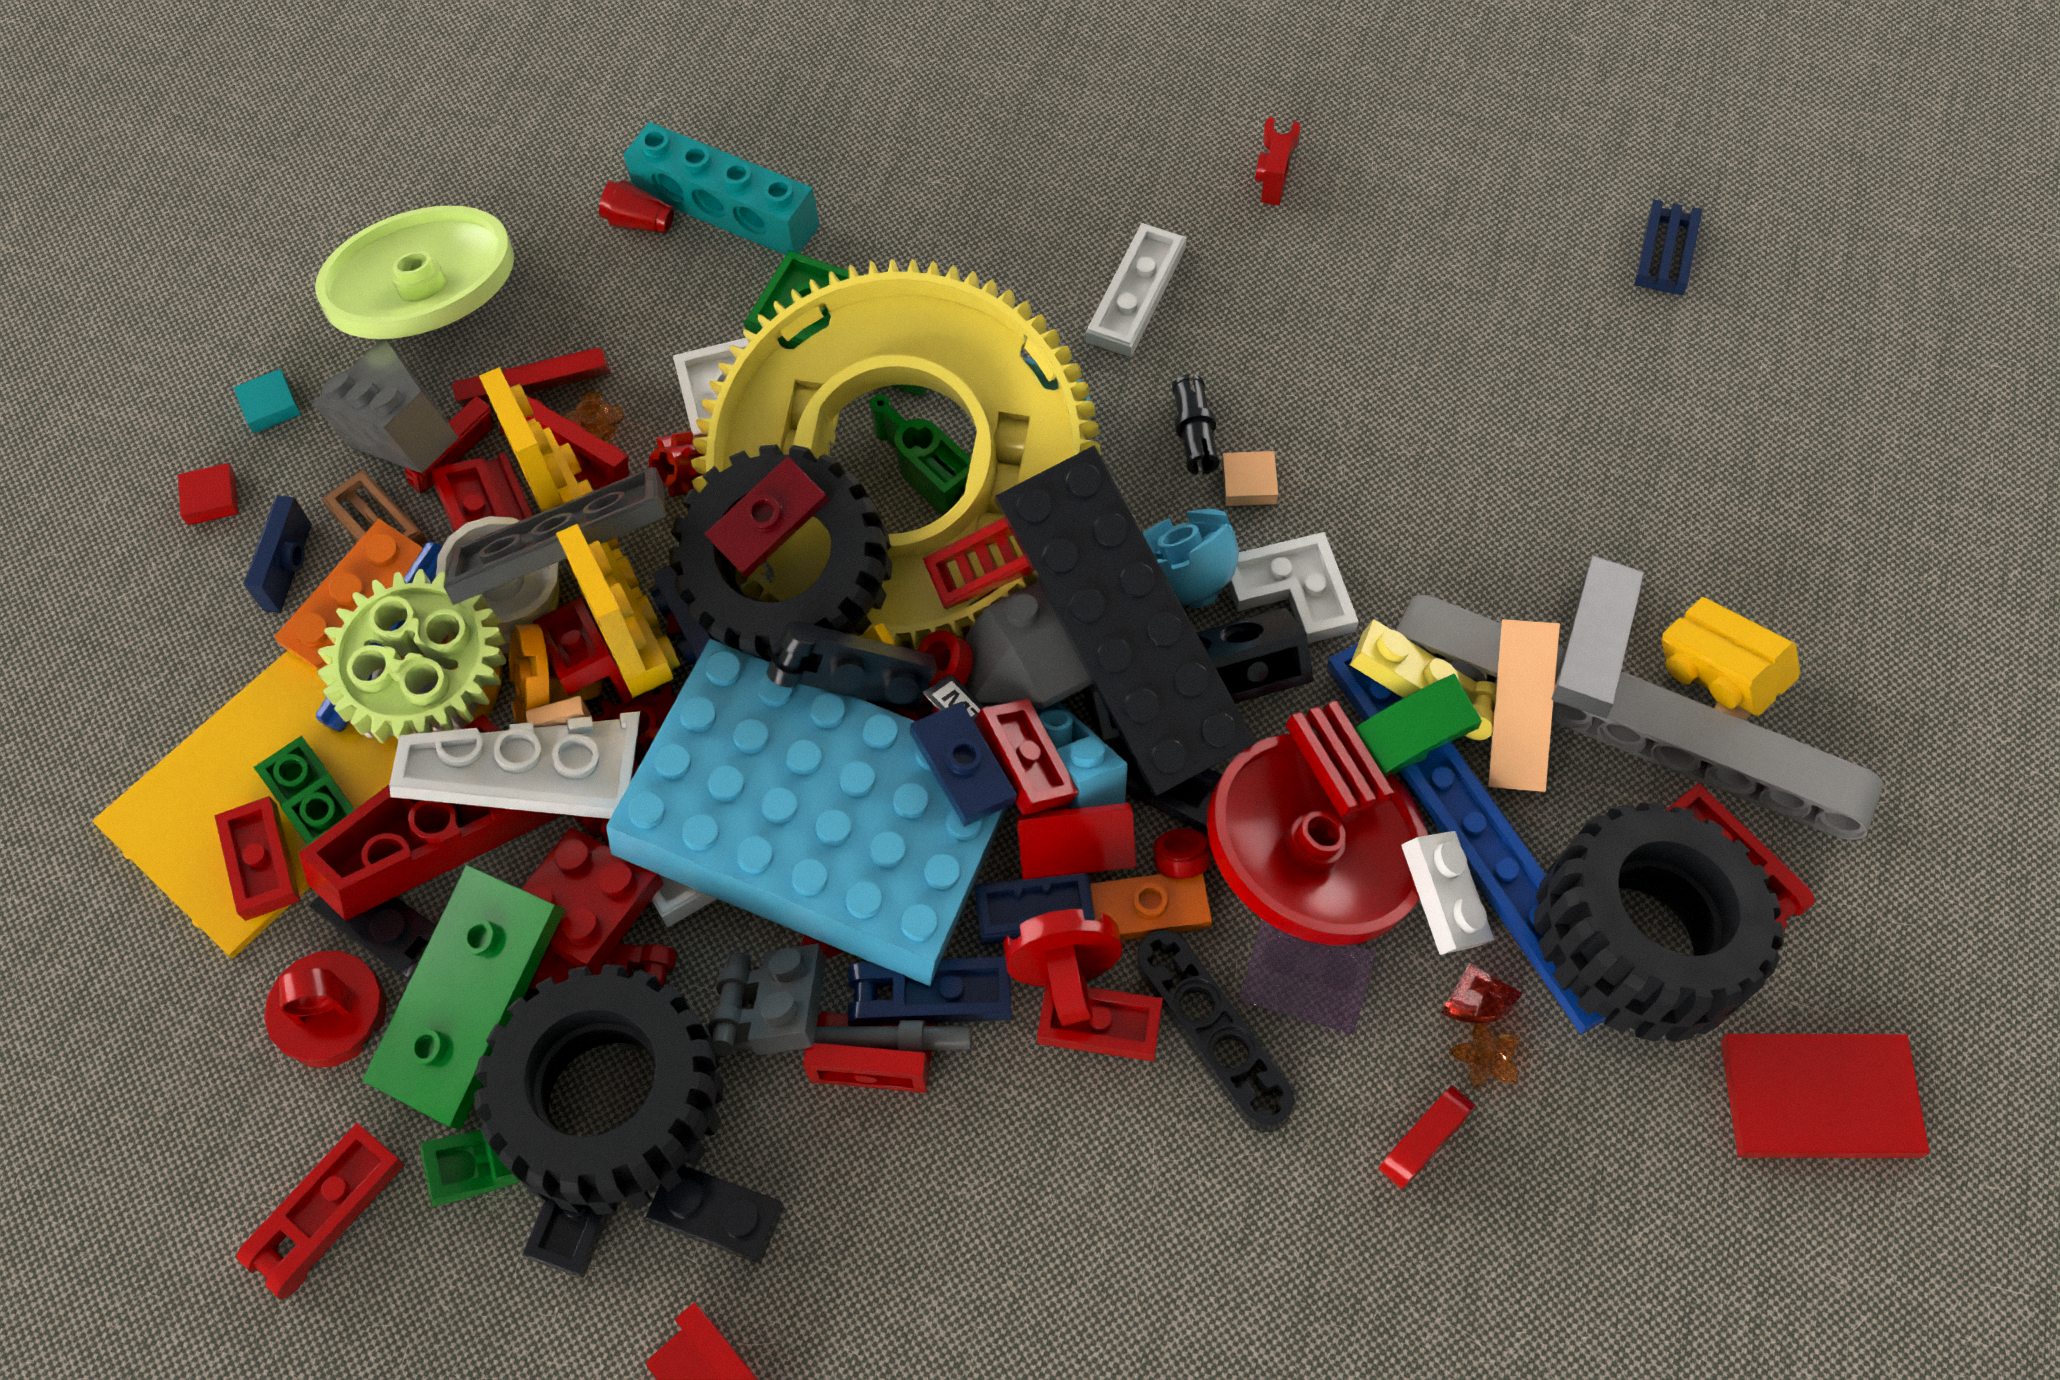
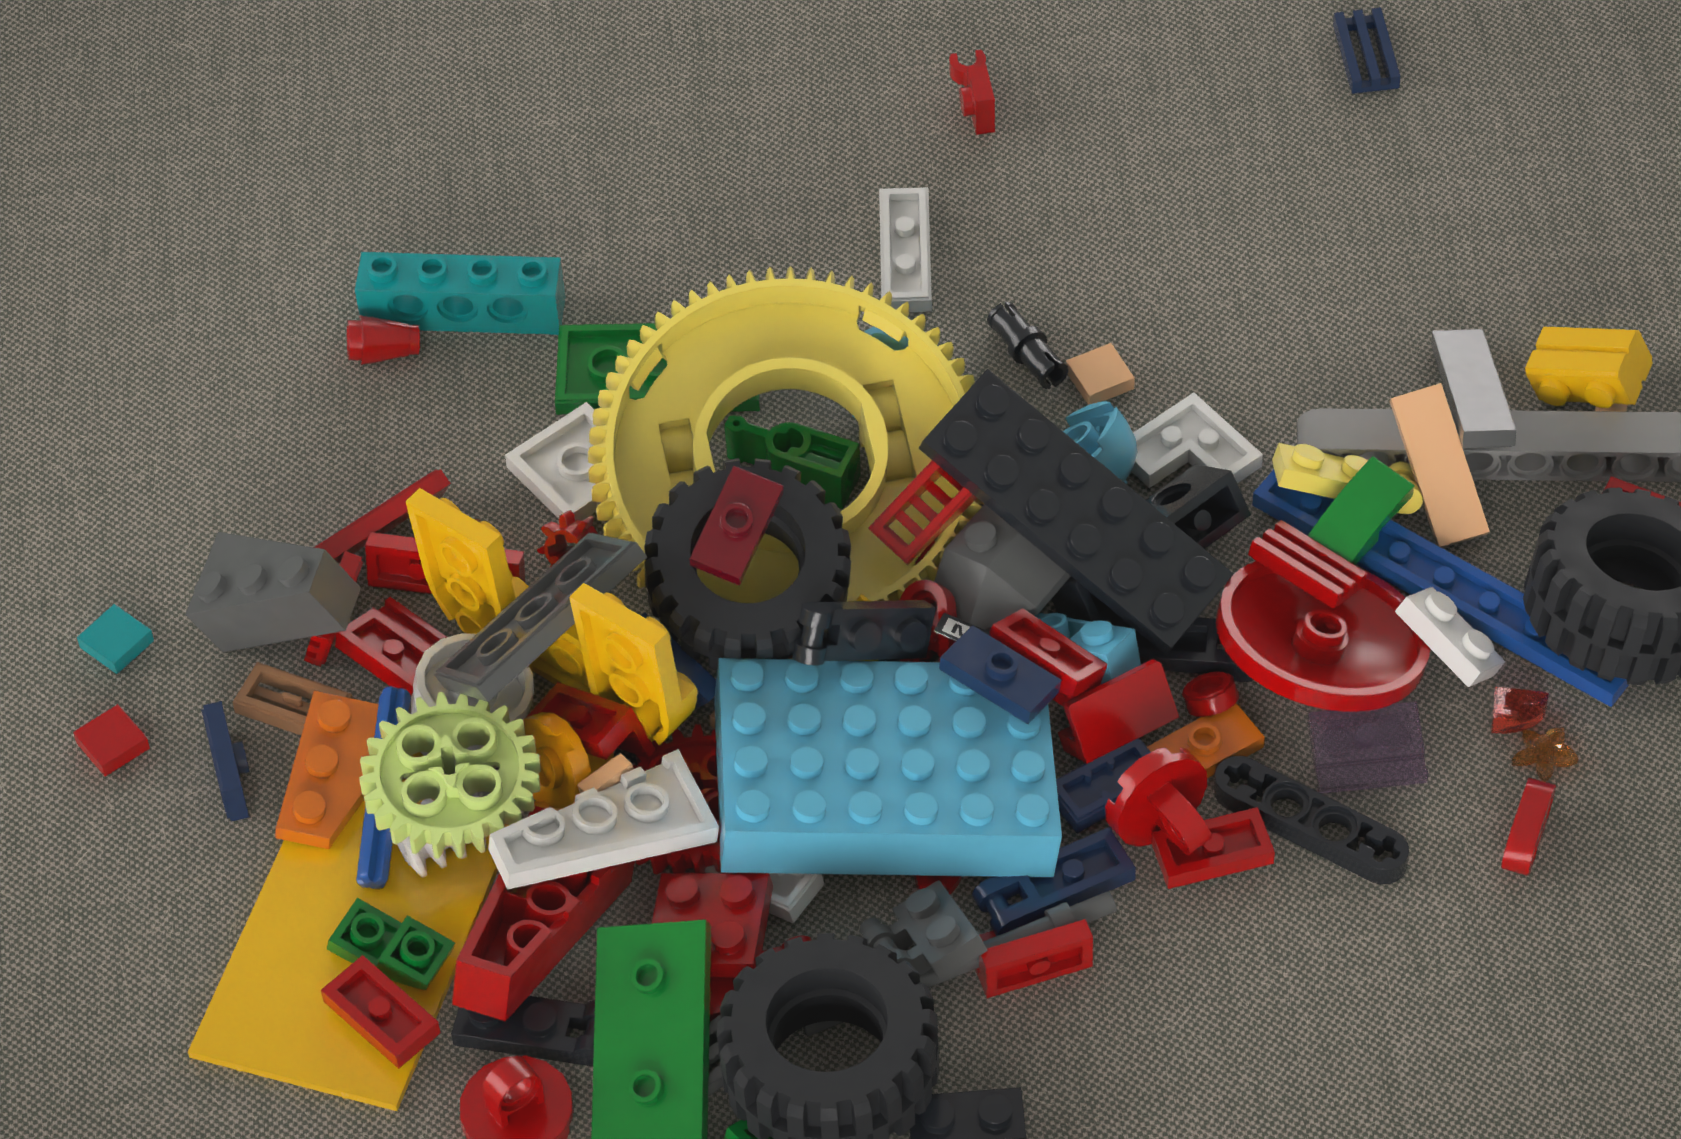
camera: 25 degrees left, 10 degrees down
(414, 272) = (204, 467): yellowish green dish -> none

